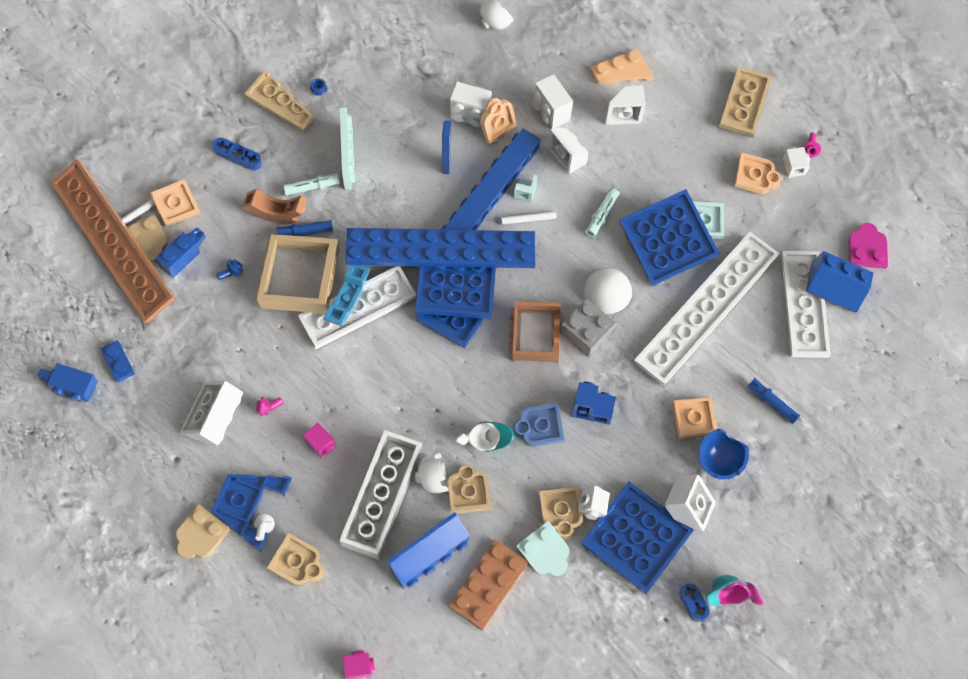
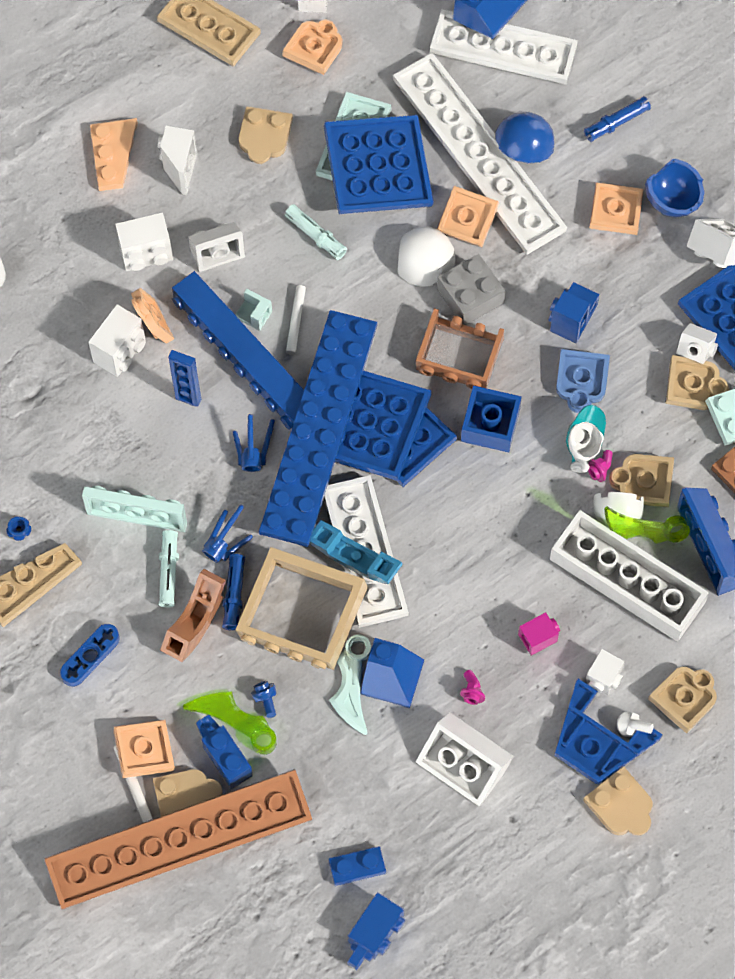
camera: 70 degrees left, 0 degrees up
(217, 246) = (224, 708): none -> clear neon green piece
(242, 324) = (347, 699): none -> light aqua piece
(267, 347) = (391, 673): none -> blue slope
(300, 496) = (605, 672): none -> white brick
(335, 210) = (215, 546): none -> blue plant
(409, 214) = (251, 459): none -> blue plant
(417, 481) = (656, 531): none -> clear neon green piece
(467, 454) = (599, 467): none -> dark pink plate
(484, 365) = (491, 419): none -> blue brick
(649, 311) = (468, 216): none -> light nougat plate
(671, 160) = (264, 133): none -> tan plate
(729, 336) = (525, 137): none -> blue cylinder

